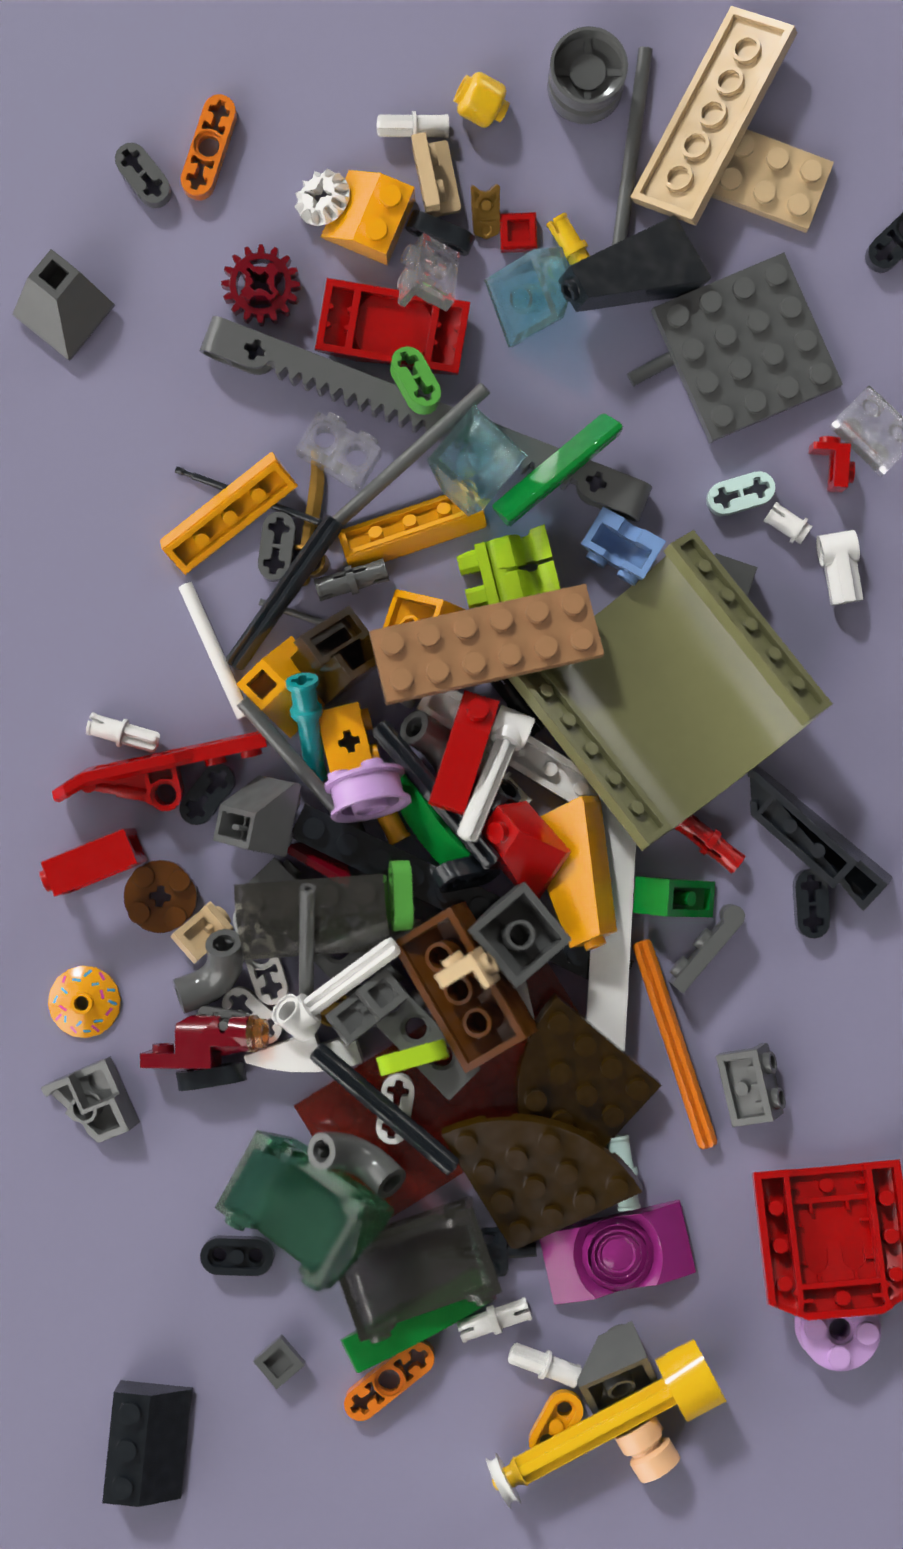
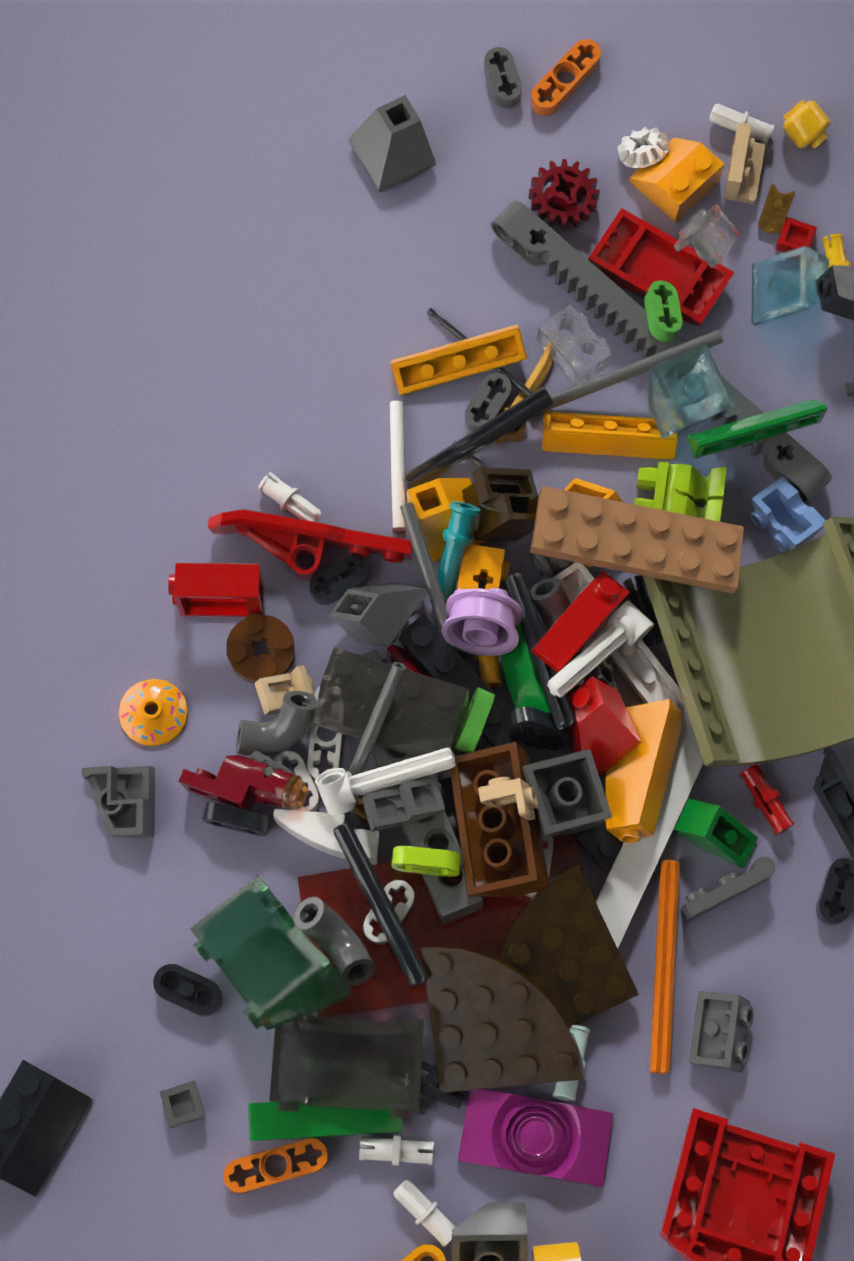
camera: 20 degrees right, 15 degrees down
(351, 579) = (540, 453): dark grey pin -> none
(440, 230) = (735, 211): black beam -> none

